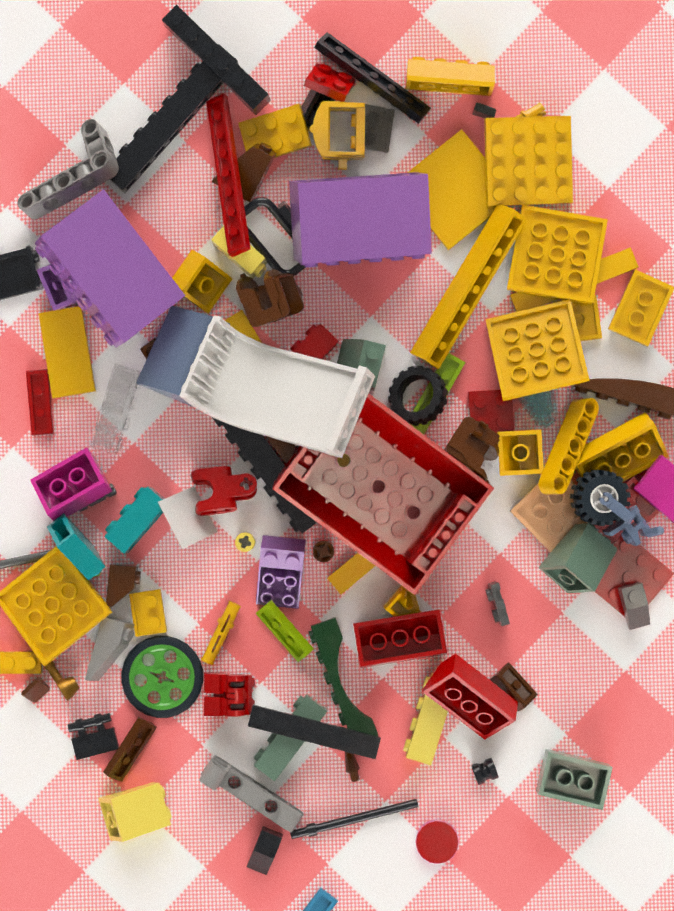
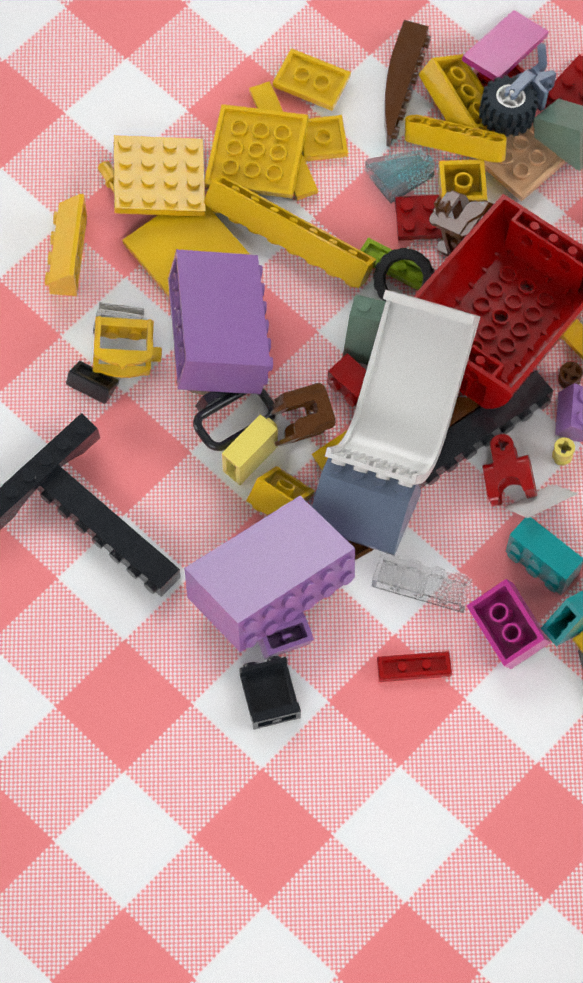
camera: 90 degrees left, 20 degrees down
(67, 352) = (358, 636): yellow tile -> none
(76, 180) = (164, 608): light grey beam -> none
(228, 175) = (168, 453): red tile -> none
(253, 168) = (162, 443): reddish brown slope -> none
(282, 130) = (122, 418): yellow plate -> none
(330, 82) = (69, 359): red plate -> none
(372, 77) = (64, 323): black plate -> none
(484, 111) = (105, 217): pearl dark grey tile -> none
(537, 350) = (356, 166): yellow plate -> none

